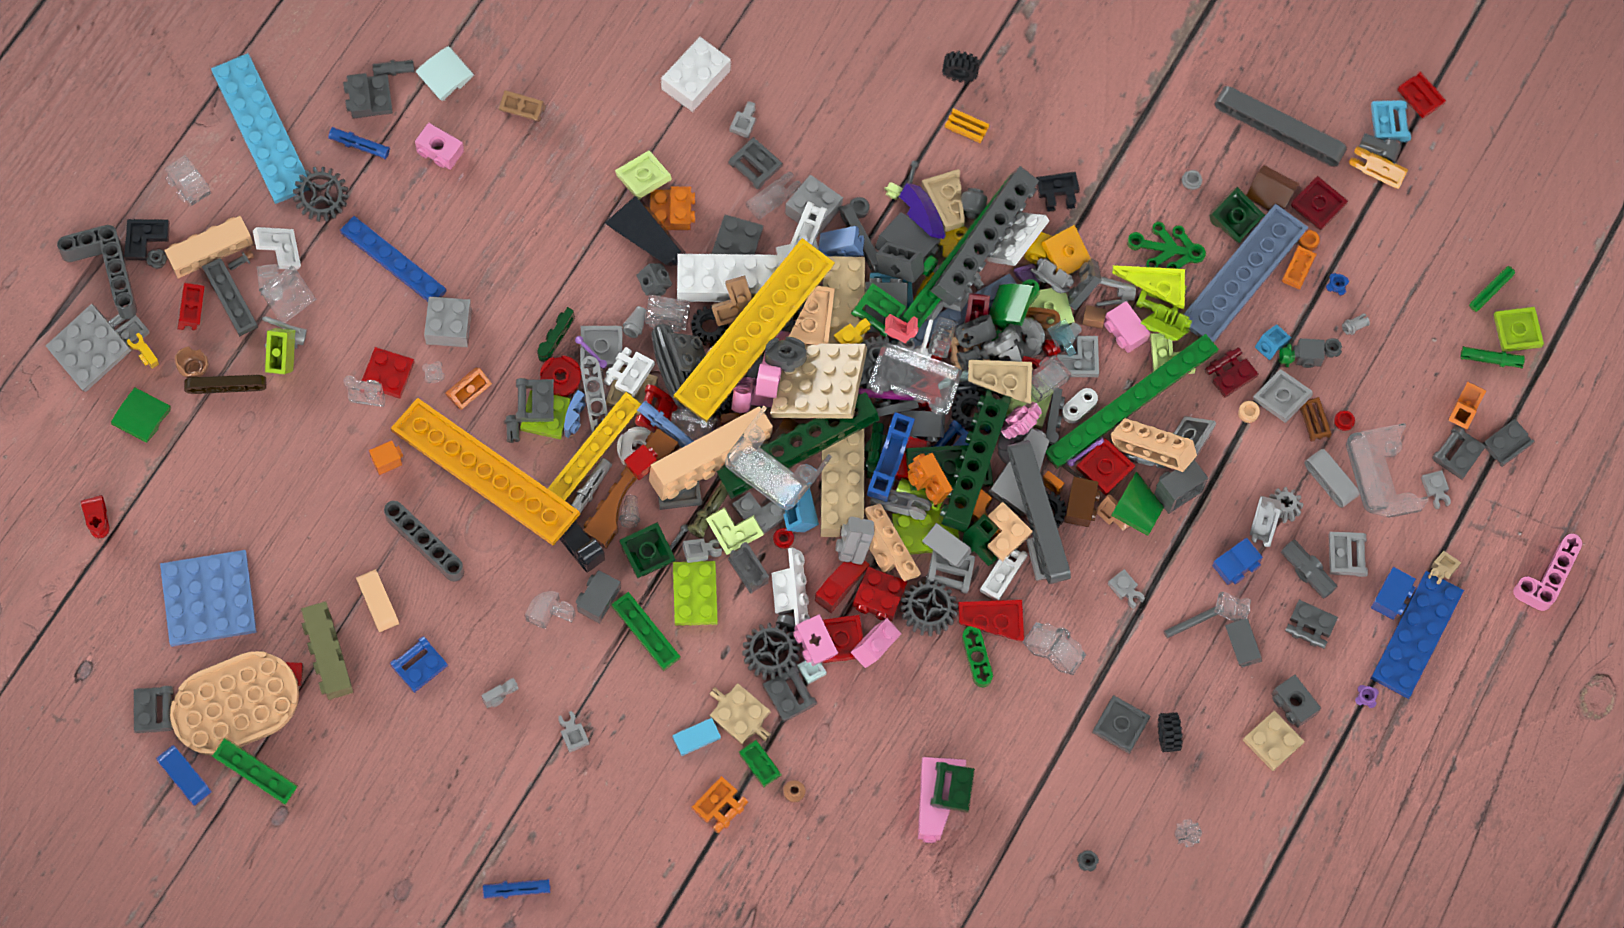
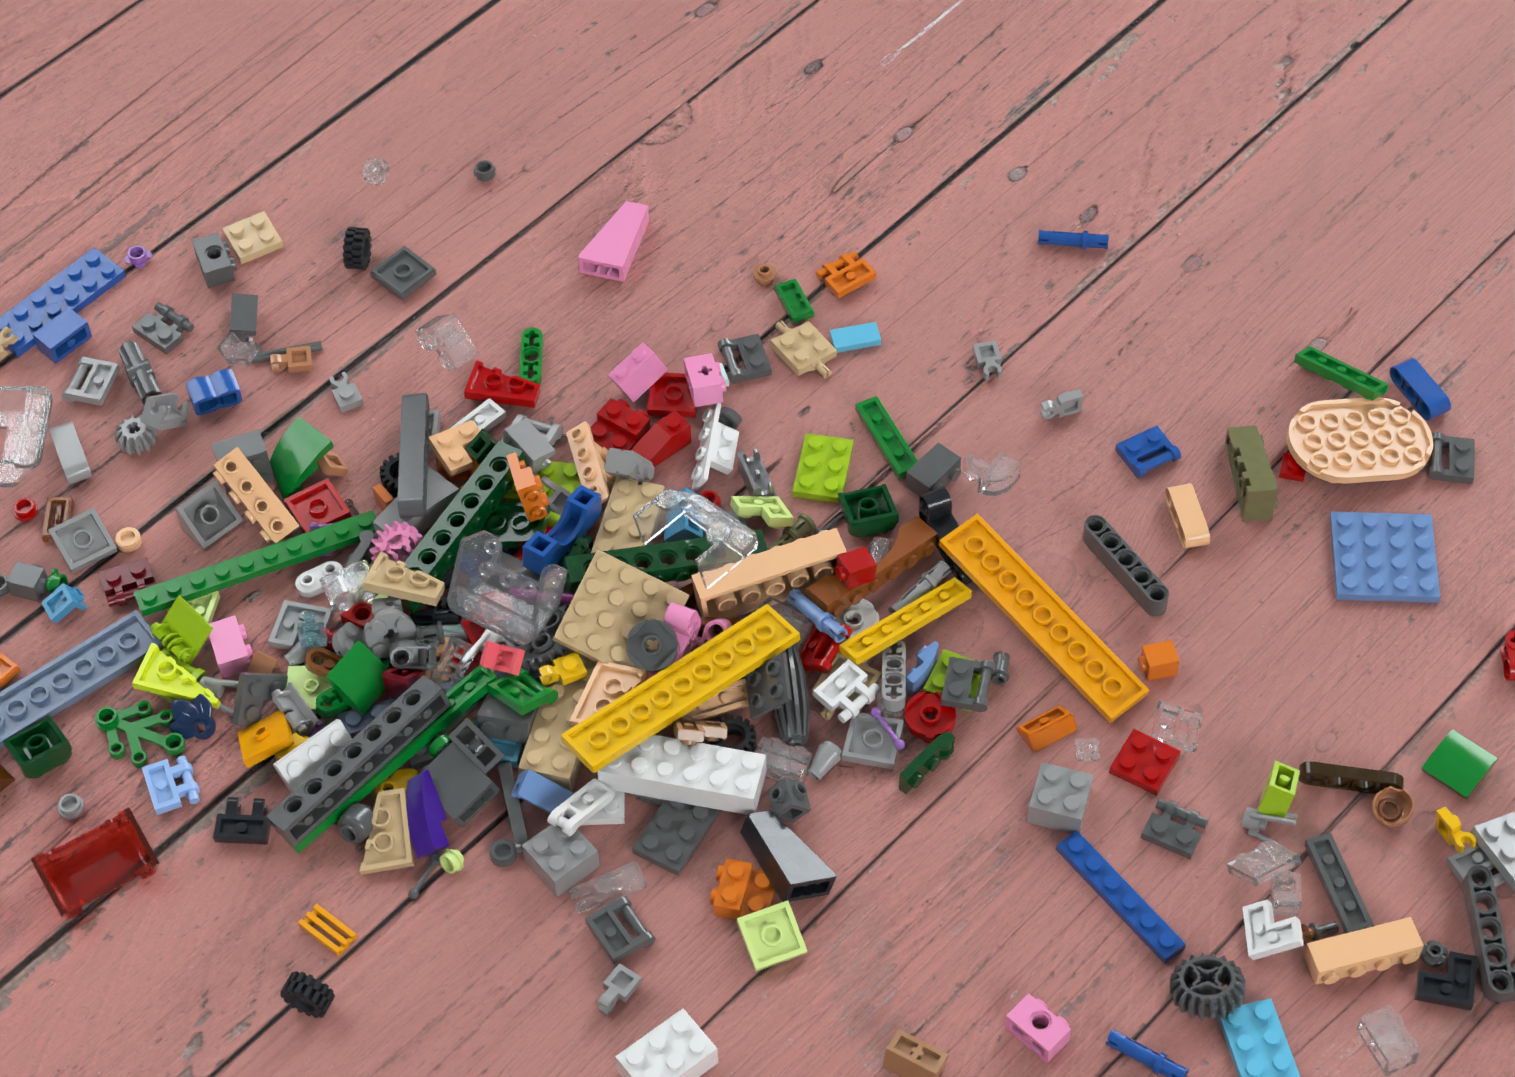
camera: 160 degrees left, 15 degrees down
(191, 306) = (1391, 876): red hinge -> none
(361, 316) = (1172, 835): none -> dark grey plate
(698, 550) = (810, 503): light grey plate -> none
(764, 655) = (753, 382): dark grey gear -> none
(936, 610) = (565, 398): dark grey gear -> none
(959, 790) = (594, 229): dark green plate -> none
(1081, 502) = (359, 472): reddish brown brick -> none
(1125, 259) = (189, 715): none -> dark blue plate
(1129, 205) = (162, 786): none -> light blue plate
(1157, 137) = (95, 864): none -> clear red windscreen
(1180, 610) = (296, 359): none -> nougat plate

